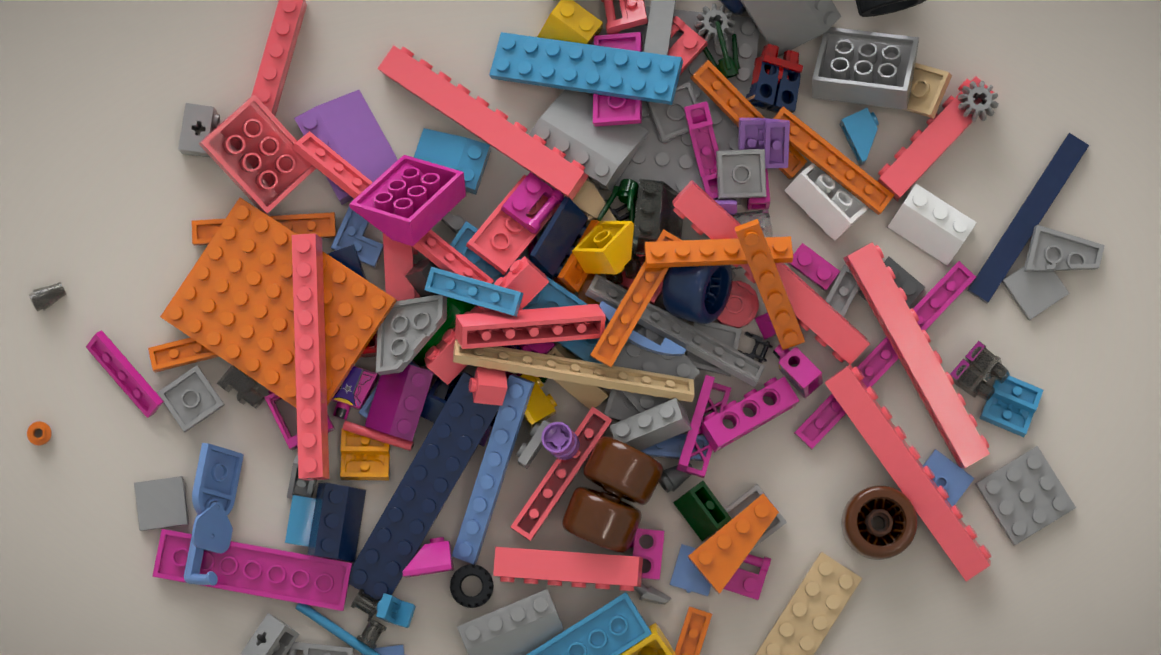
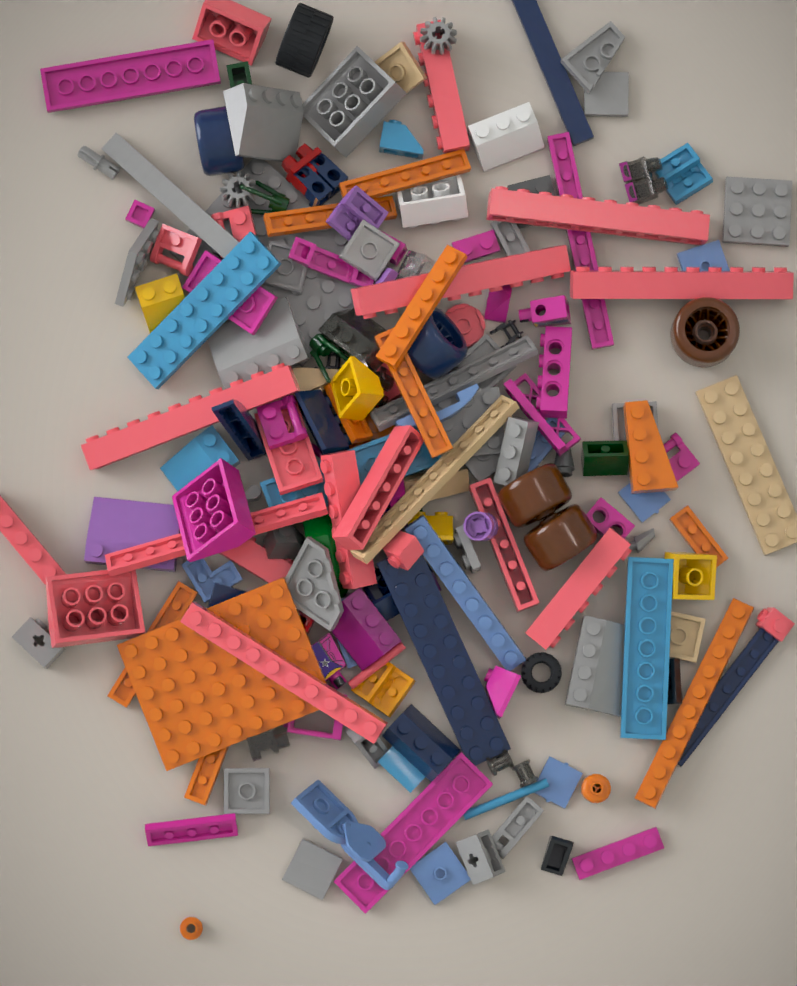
camera: 60 degrees left, 0 degrees up
(46, 296) = (86, 851): clear smoke cone -> none
(233, 618) = (440, 873): none -> medium blue plate
(395, 611) = (521, 743): dark azure bracket -> none
(474, 291) = (322, 511): dark azure plate -> none
(500, 167) = (241, 428): none -> dark blue slope
(769, 284) = (472, 285): orange plate -> none

